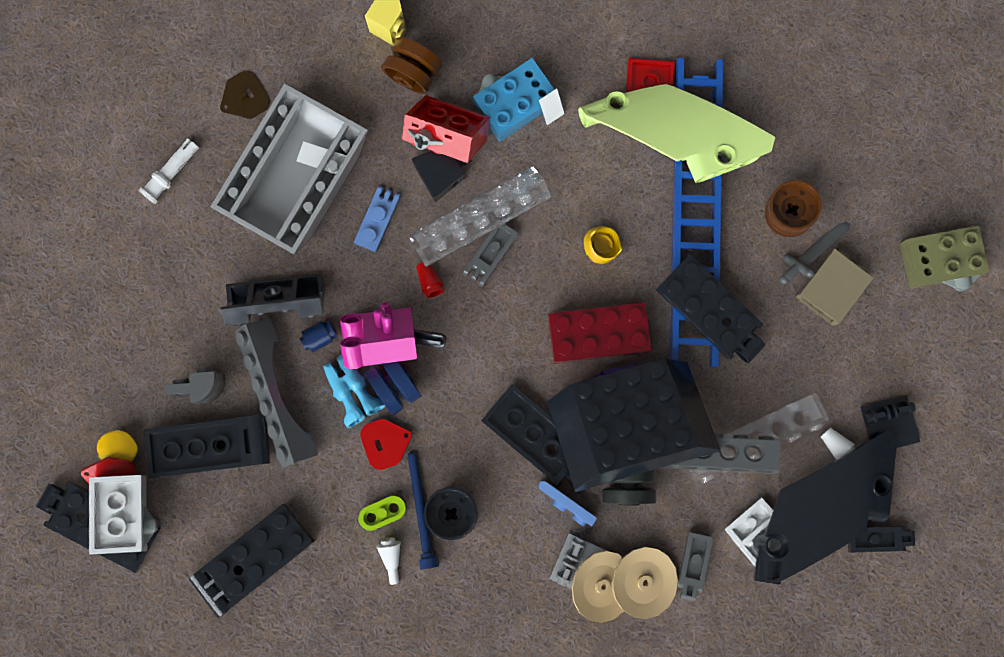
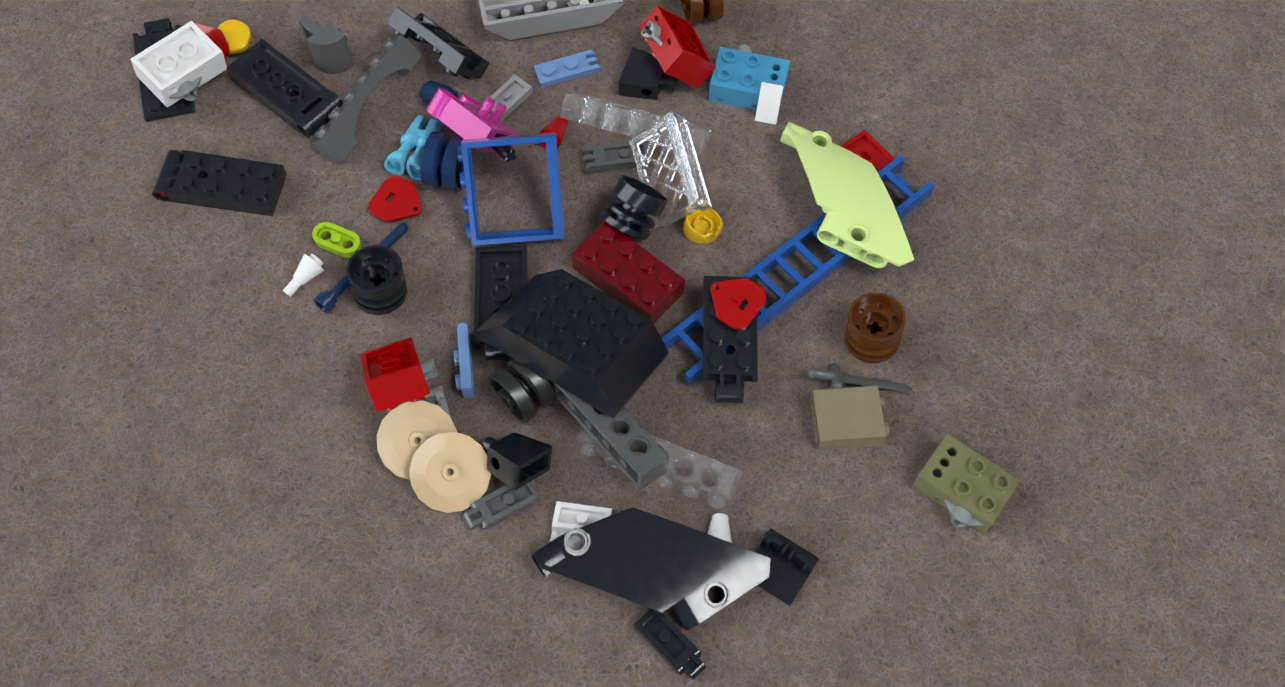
camera: 50 degrees right, 20 degrees down
(366, 287) = (512, 94): none -> light grey plate
(496, 380) = (470, 204): none -> blue window
(546, 564) = (396, 374): none -> red piece
(554, 216) = (684, 159): none -> clear fence
(557, 285) = (632, 211): none -> black wheel
(676, 532) = (517, 459): none -> black torso
(693, 288) = (731, 296): none -> red piece

